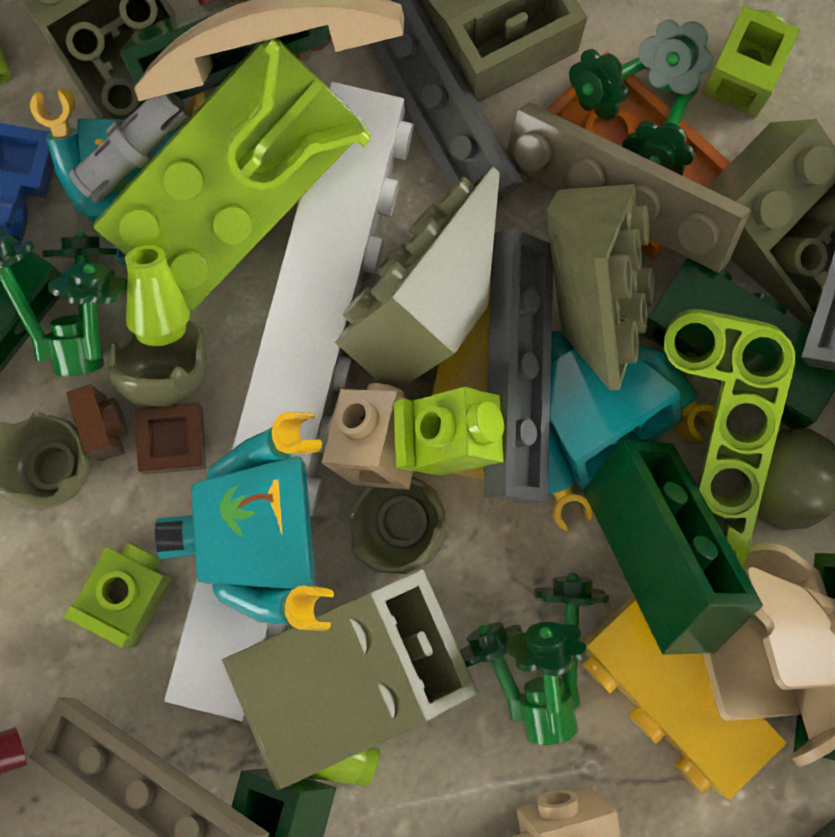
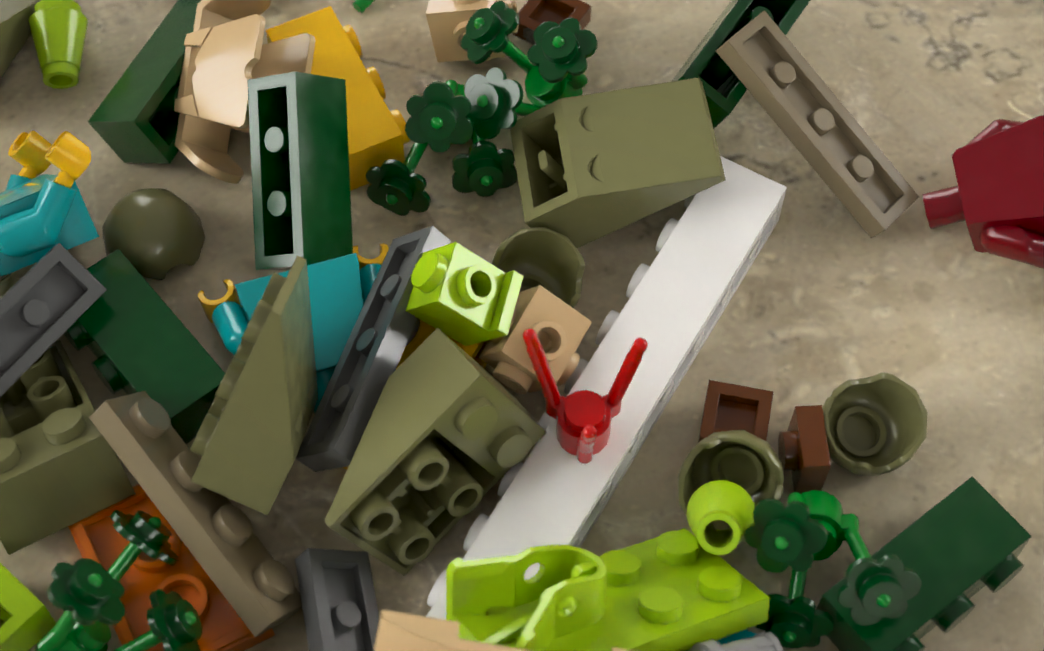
camera: 165 degrees left, 20 degrees down
(126, 621) = (813, 295): lime brick -> none
(254, 528) = (668, 268): teal torso -> none
(298, 347) = (583, 415): none -> red plant
(451, 778) = (551, 65): none -> dark green plant
(738, 386) = (169, 276): lime beam -> none

